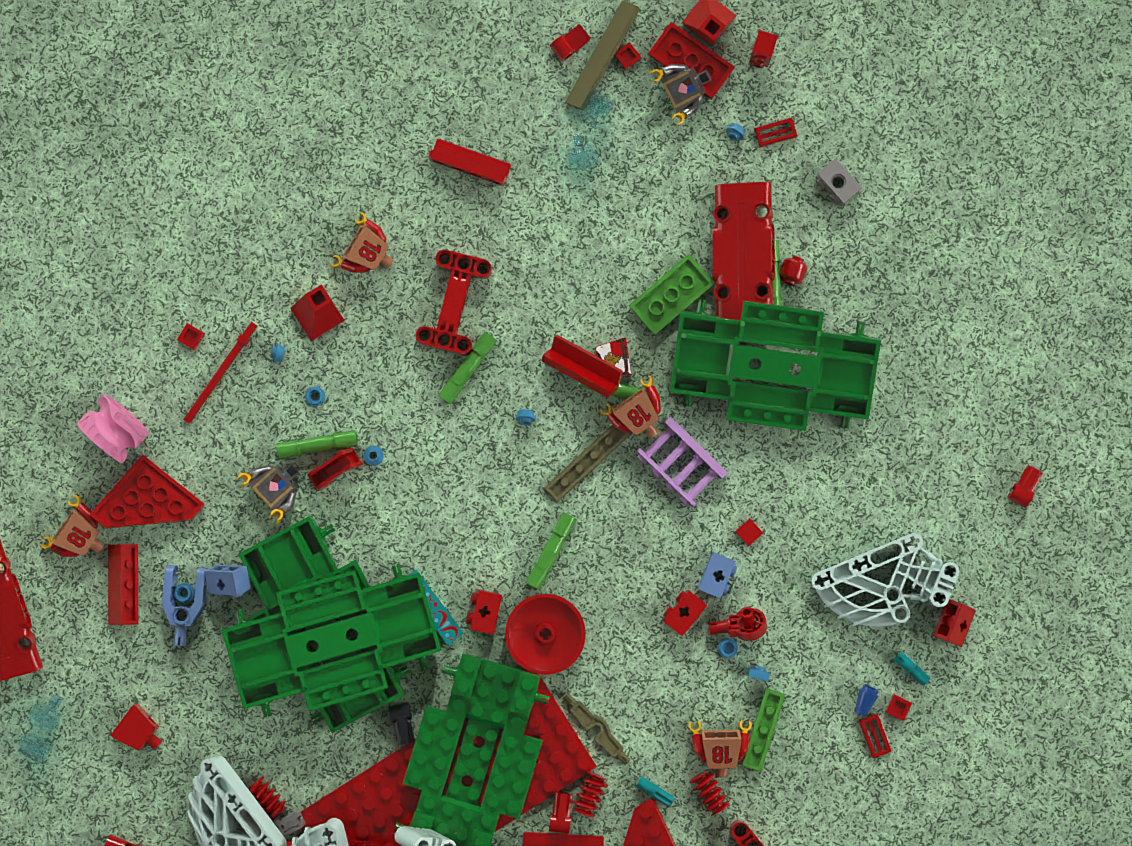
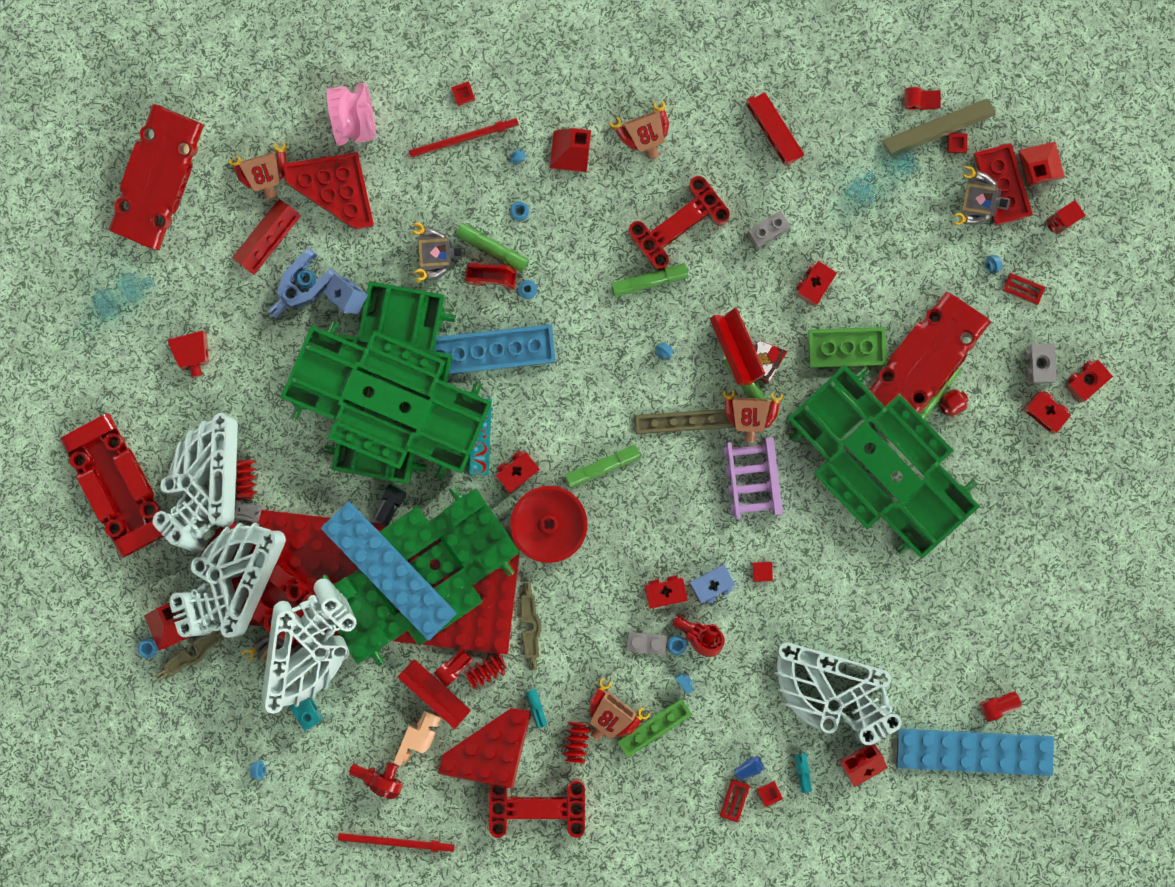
camera: 35 degrees right, 0 degrees up
(388, 523) = (498, 349): none -> dark azure plate
(445, 777) = (389, 570): none -> dark azure plate
(531, 250) = (768, 230): none -> light grey brick
(605, 251) = (814, 294): none -> red brick
(702, 666) = (646, 643): none -> light grey plate
(864, 223) = (1052, 421): none -> red brick
(892, 156) = (1098, 374): none -> red brick
(1035, 540) = (975, 752): none -> dark azure plate

